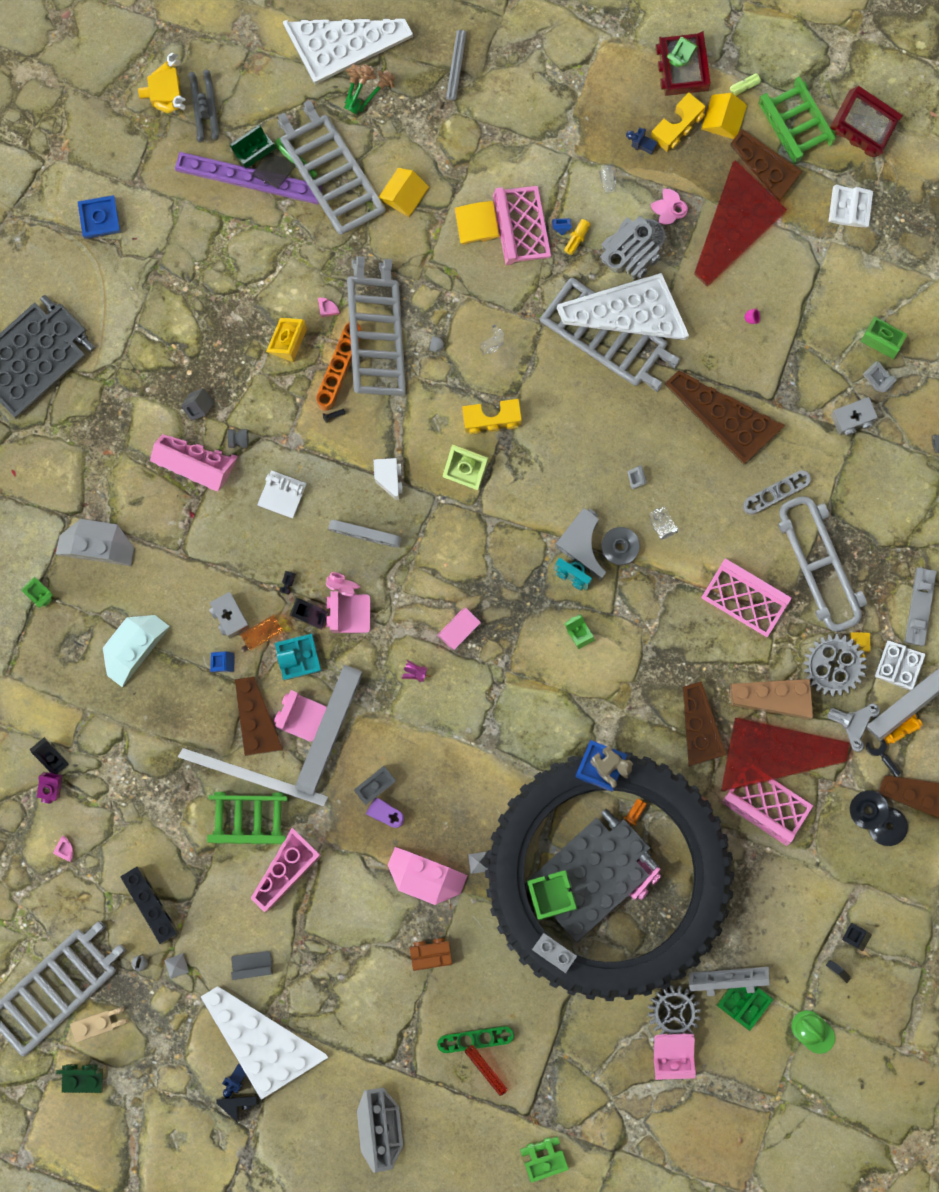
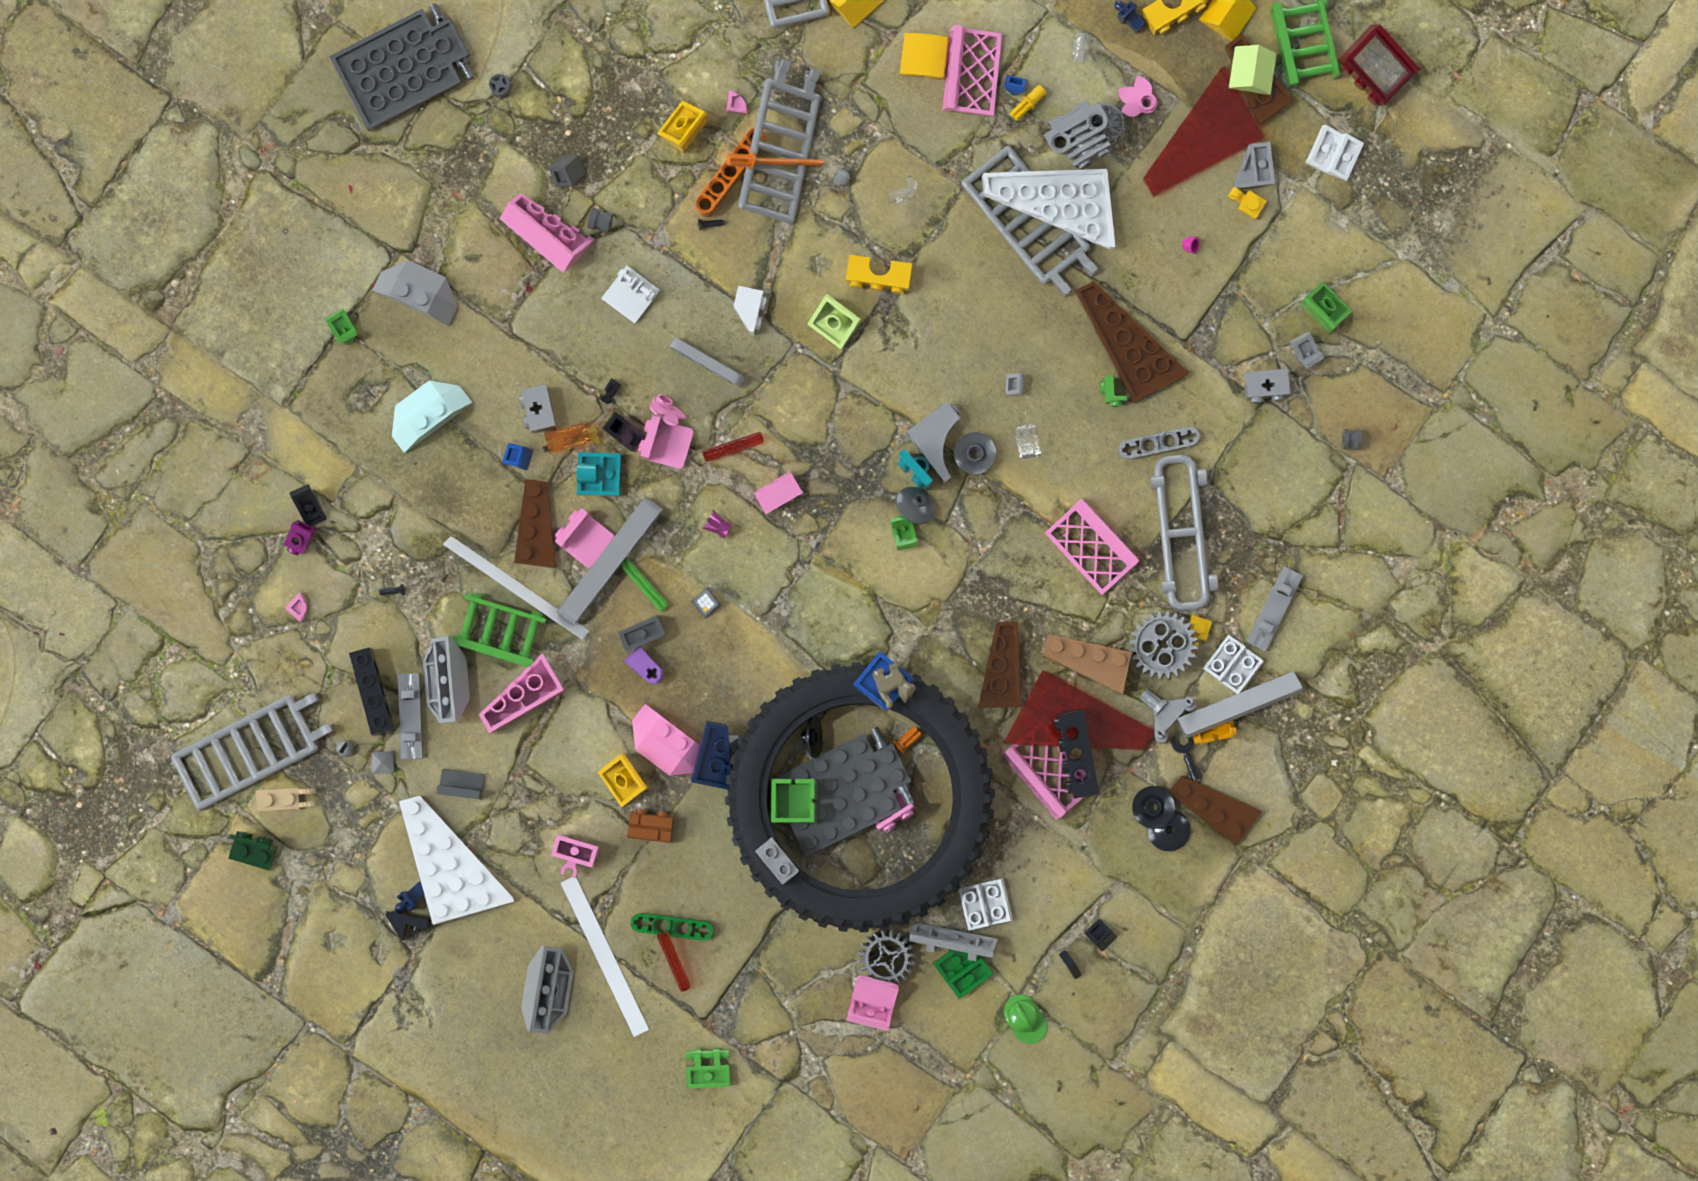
camera: 10 degrees right, 5 degrees up
(116, 346) = (497, 82): none -> dark grey wheel
(151, 807) = (401, 589): none -> black piece
(190, 917) = (410, 716): none -> light grey hinge
(213, 876) = (446, 679): none -> light grey wedge
(353, 348) = (749, 160): none -> orange piece
(364, 742) = (644, 585): none -> bright green axle
(370, 998) = (574, 852): none -> bright pink brick
(394, 920) = (622, 779): none -> yellow slope
(408, 600) = (733, 446): none -> clear red axle
(422, 1084) = (604, 956): none -> white sticker
(423, 742) = (706, 602): none -> slope
(469, 878) = (713, 757): none -> dark blue wing
(551, 833) = (813, 737): none -> black dish
(582, 605) = (916, 505): none -> dark grey dish
(718, 458) = (1107, 389): none -> bright green bracket
(747, 939) = (985, 904): none -> white slope
(760, 155) = (1252, 69): none -> yellowish green slope
(788, 236) = (1256, 167): none -> light grey wing
(791, 268) = (1249, 204): none -> yellow plate
(807, 806) = (1088, 785): none -> black brick

